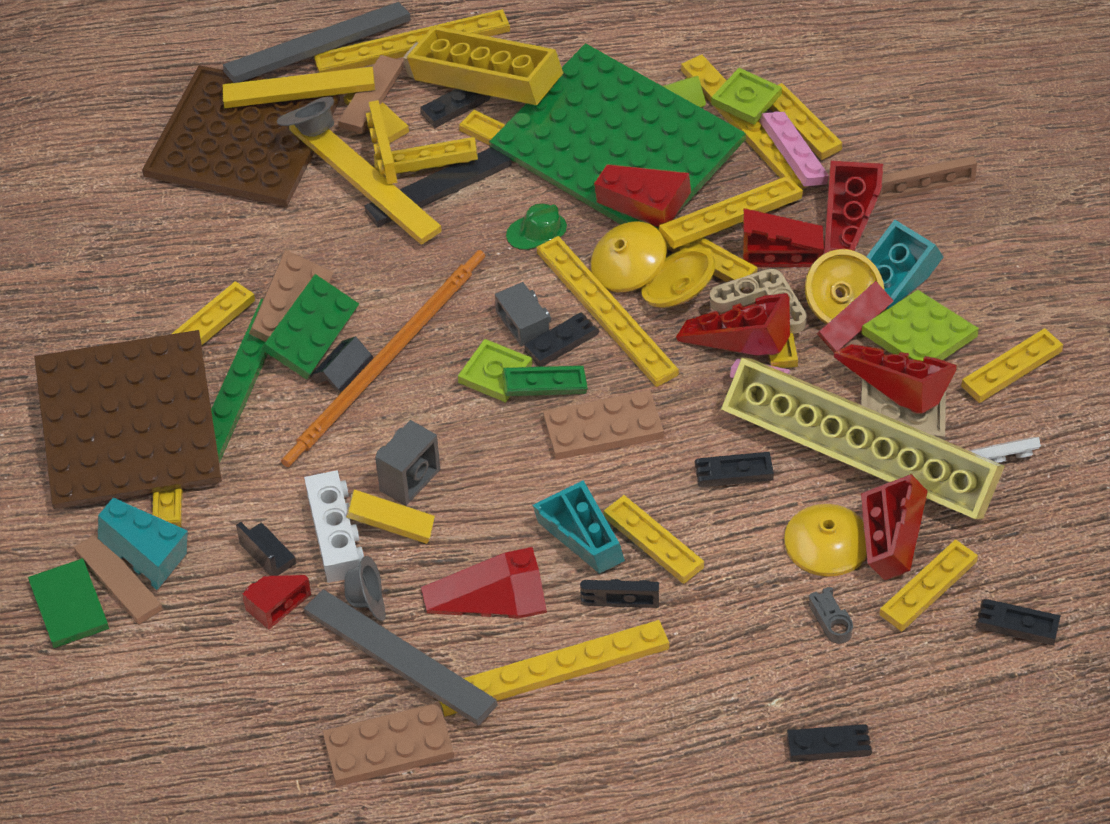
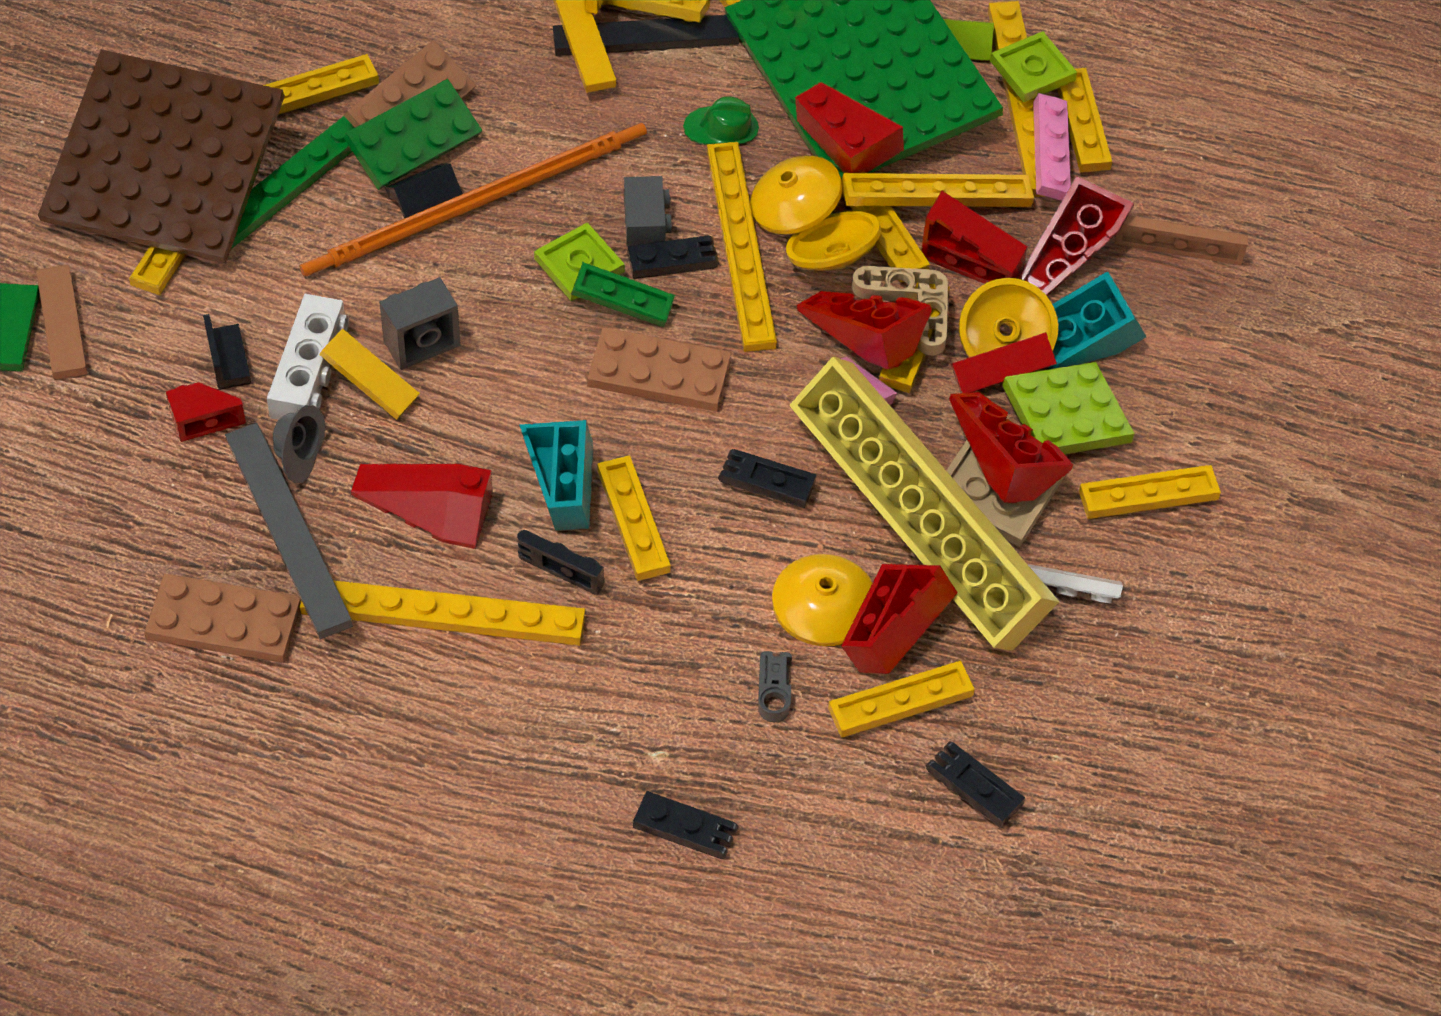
camera: 20 degrees right, 5 degrees up
(143, 540) = (104, 292): teal wedge -> none

